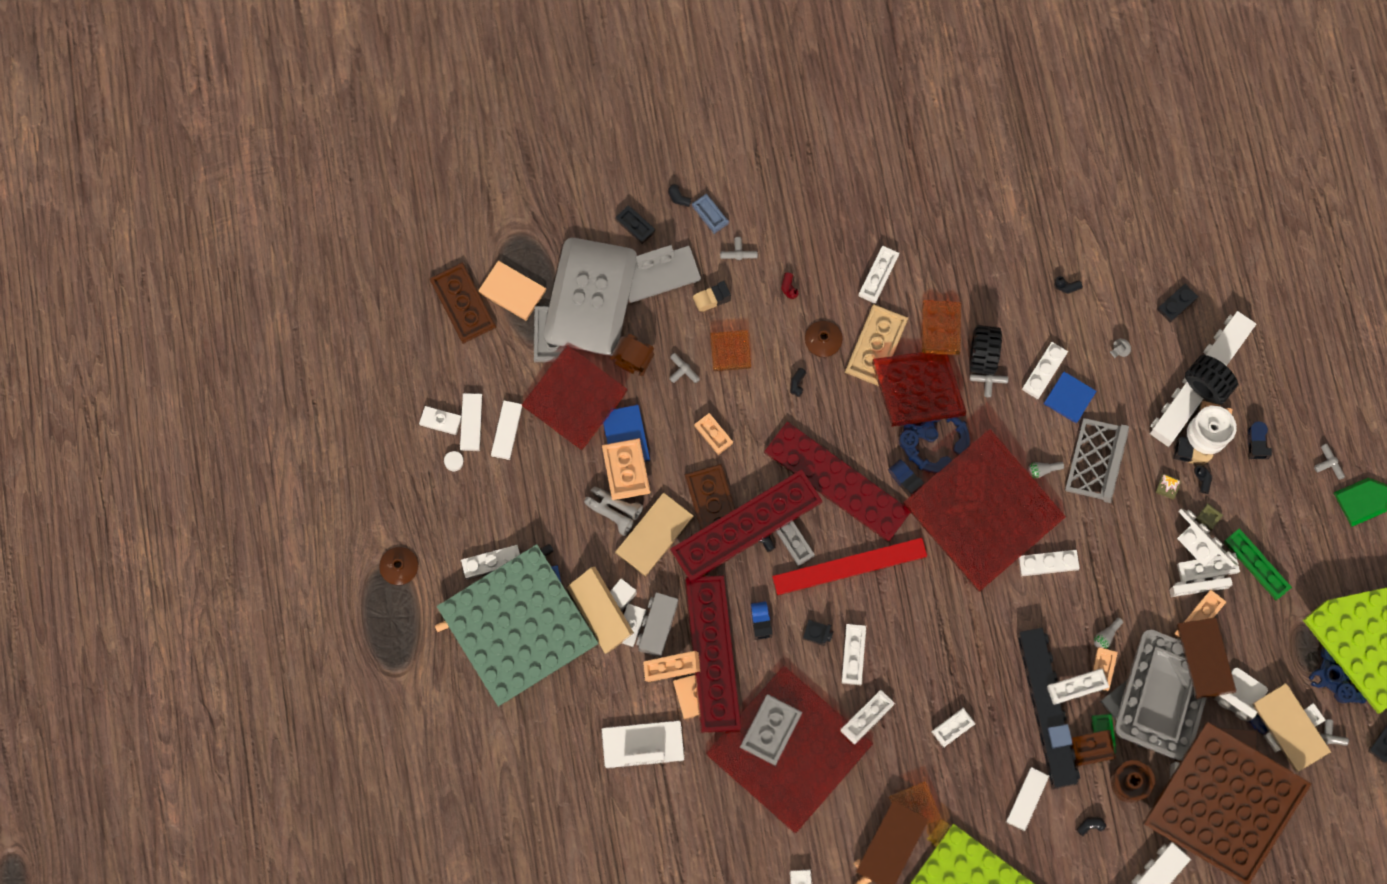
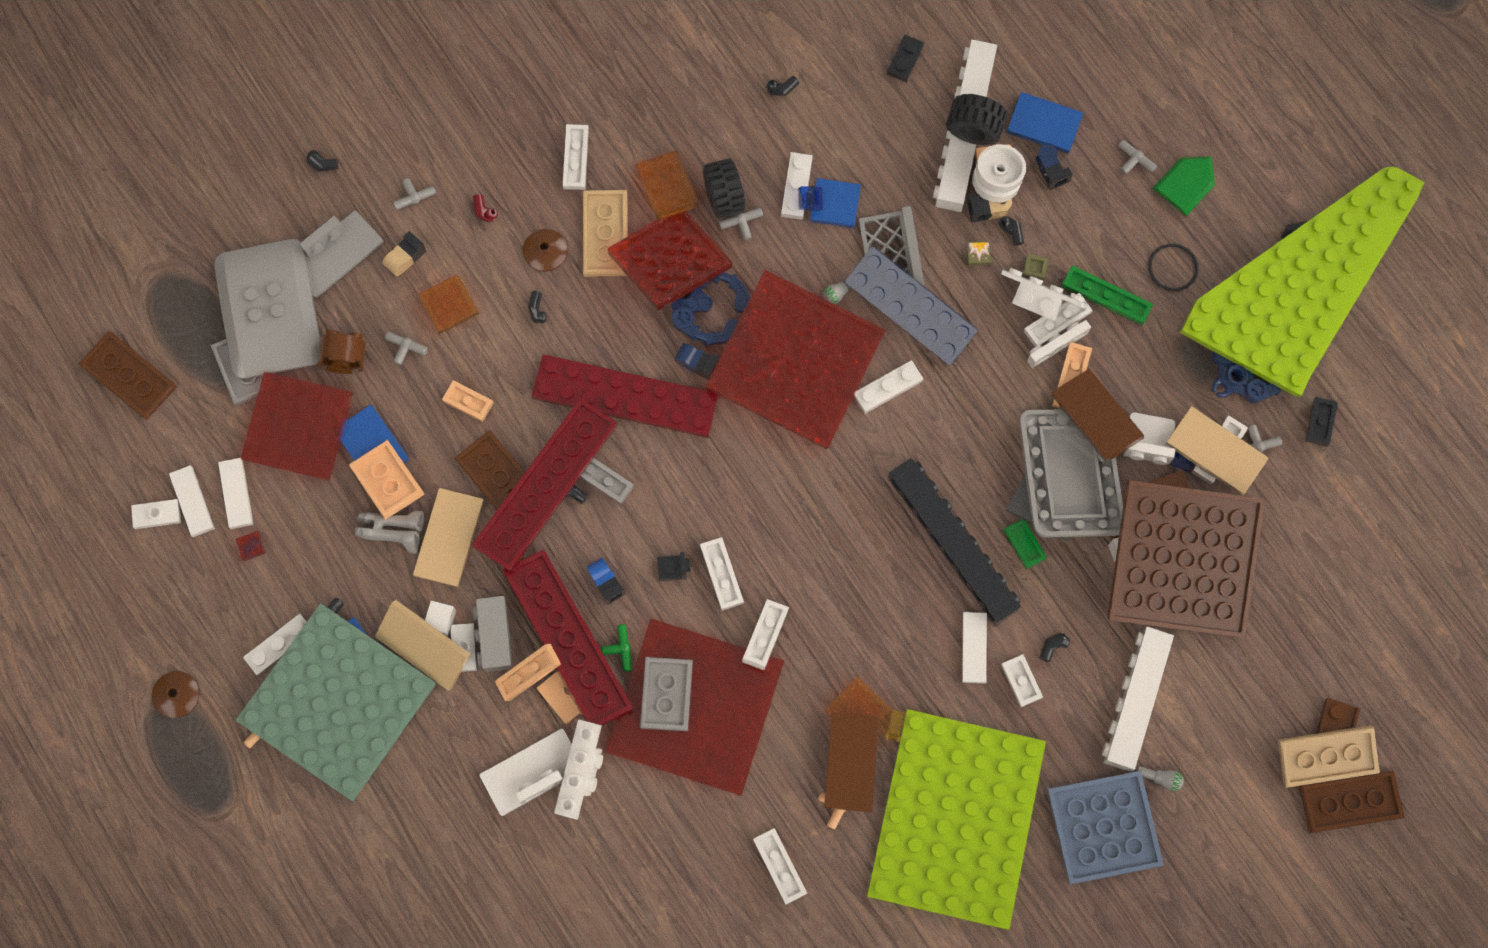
camera: 25 degrees left, 0 degrees up
(453, 461) = (190, 552): white tile -> none
(501, 476) = (250, 546): none -> clear red tile
(512, 290) = (178, 339): light nougat tile -> none
(635, 224) = (286, 211): black plate -> none
(680, 759) = (580, 770): none -> white bracket
(710, 213) = (364, 167): sand blue tile -> none
(752, 678) = (623, 647): none -> green piece
(849, 566) = (676, 481): red tile -> none
(953, 727) = (862, 606): white plate -> none
(1051, 386) = (810, 198): none -> clear blue plate
(1053, 841) = (1021, 680): none -> white plate
(1059, 736) = (980, 565): sand blue tile -> none
(1077, 686) = (976, 504): white tile -> none
(1093, 748) = (1020, 562): reddish brown plate -> none
(1095, 506) = (911, 305): none -> plate
(1104, 638) = (981, 441): light grey piece -> none
(1106, 660) = (994, 474): light nougat plate -> none
(1121, 348) = (867, 128): light grey plate -> none
(1136, 771) = (1073, 567): reddish brown brick -> none
(1268, 402) = (1044, 122): none -> blue tile
(1330, 546) = (1170, 288): none -> black piece

